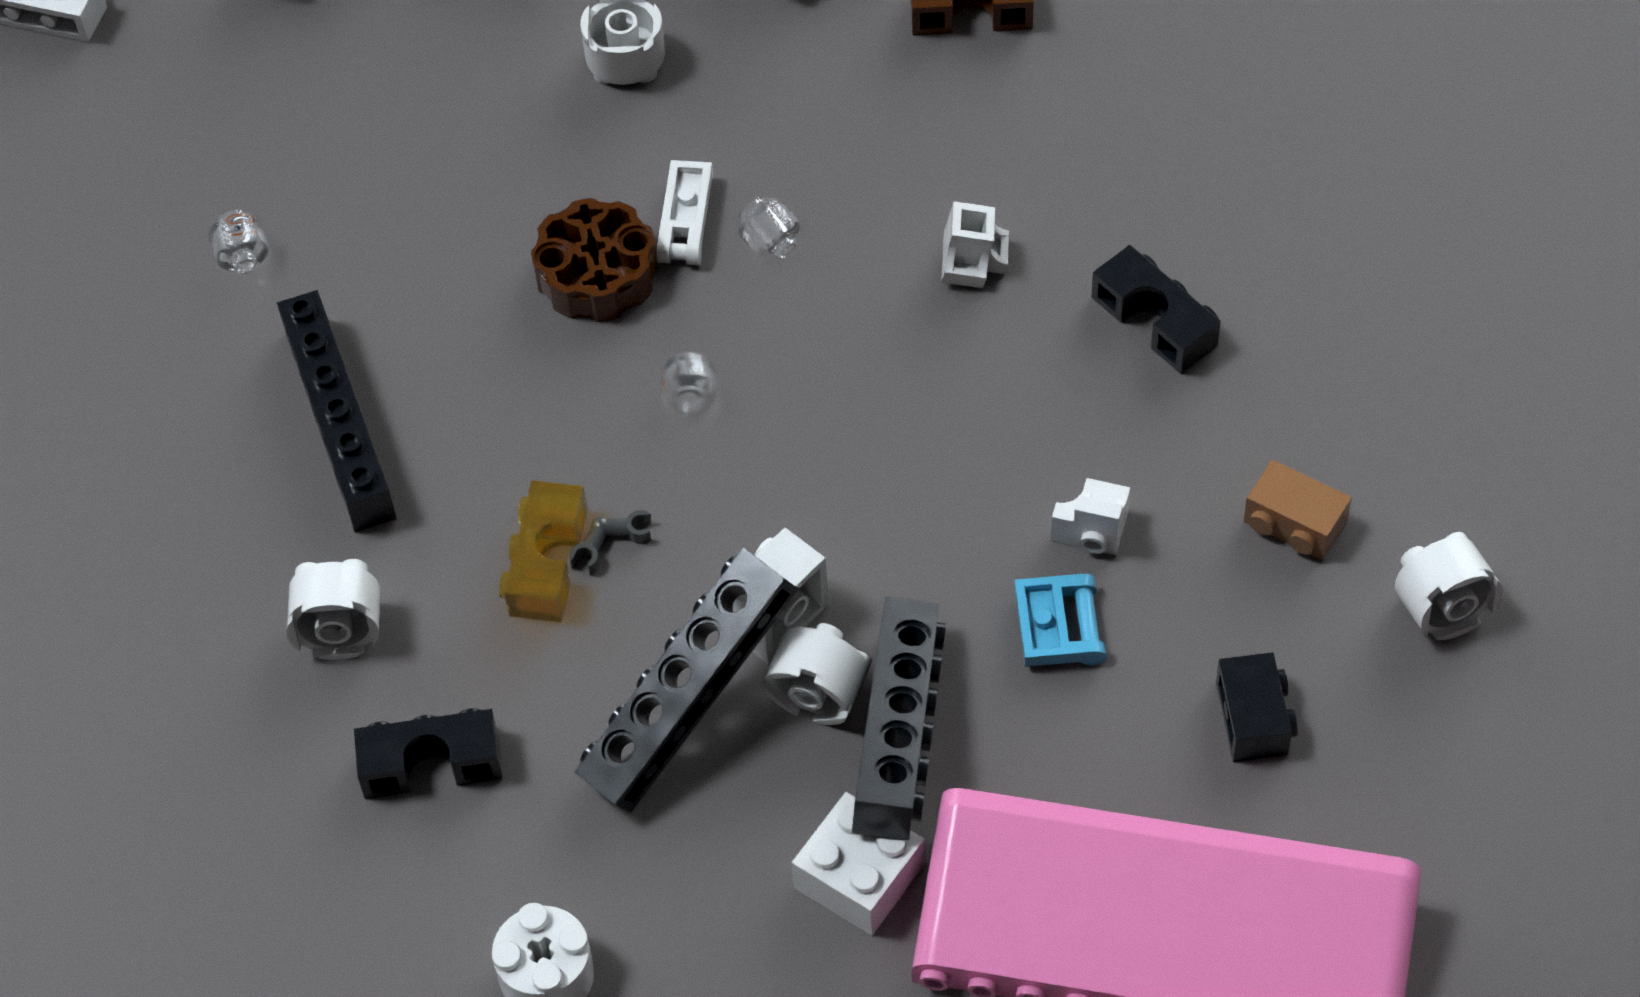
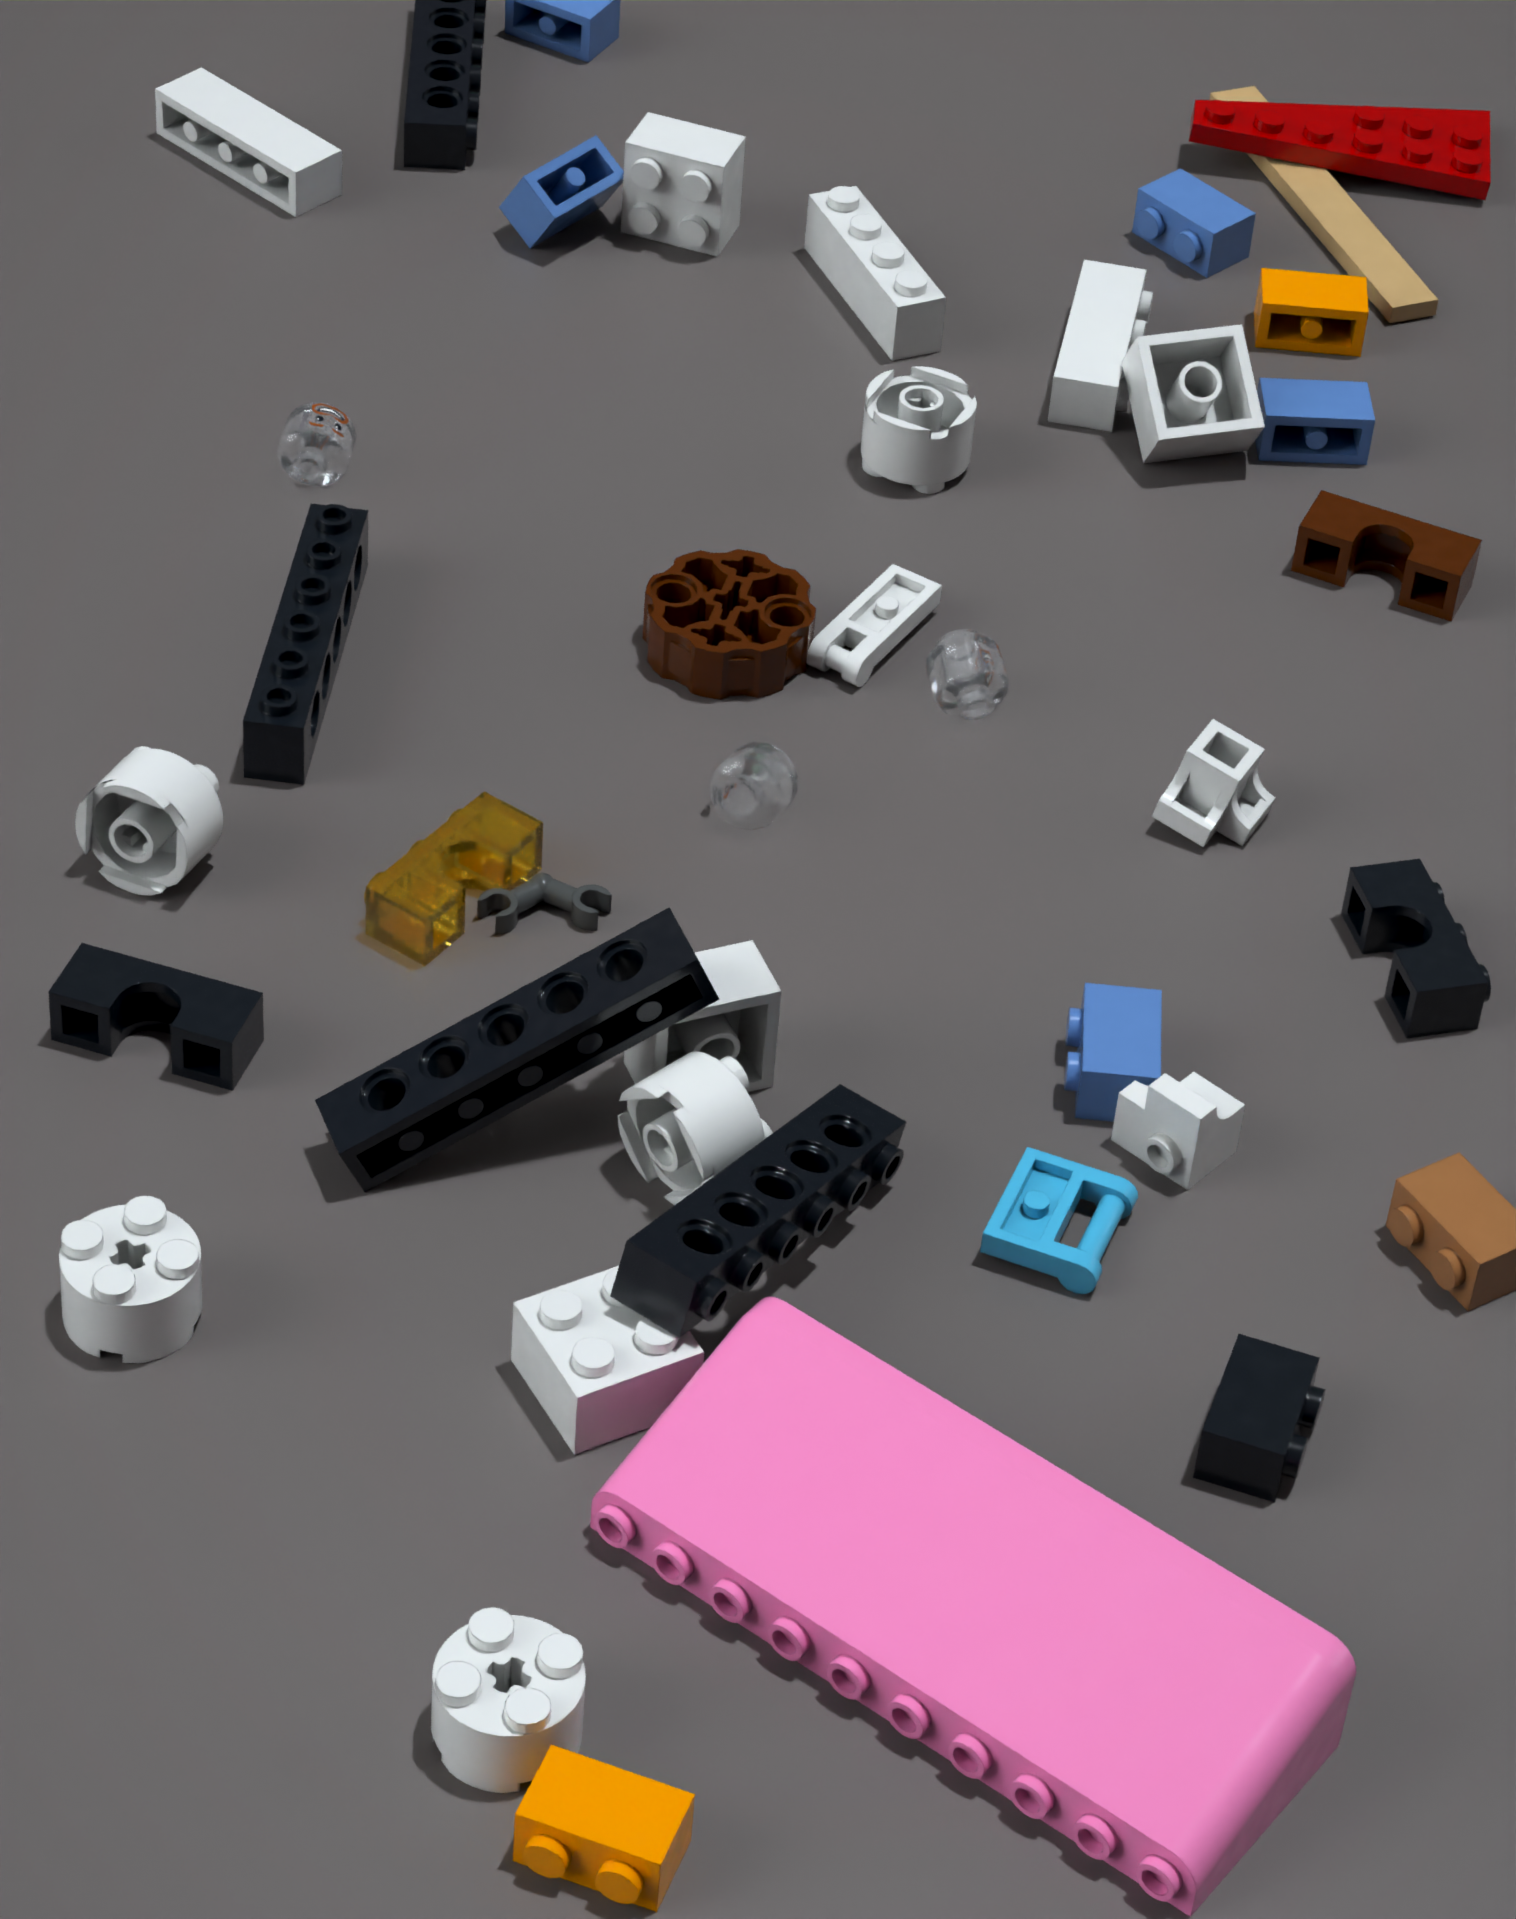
camera: 20 degrees right, 15 degrees down
(1024, 479) = (1115, 1044): none -> medium blue brick

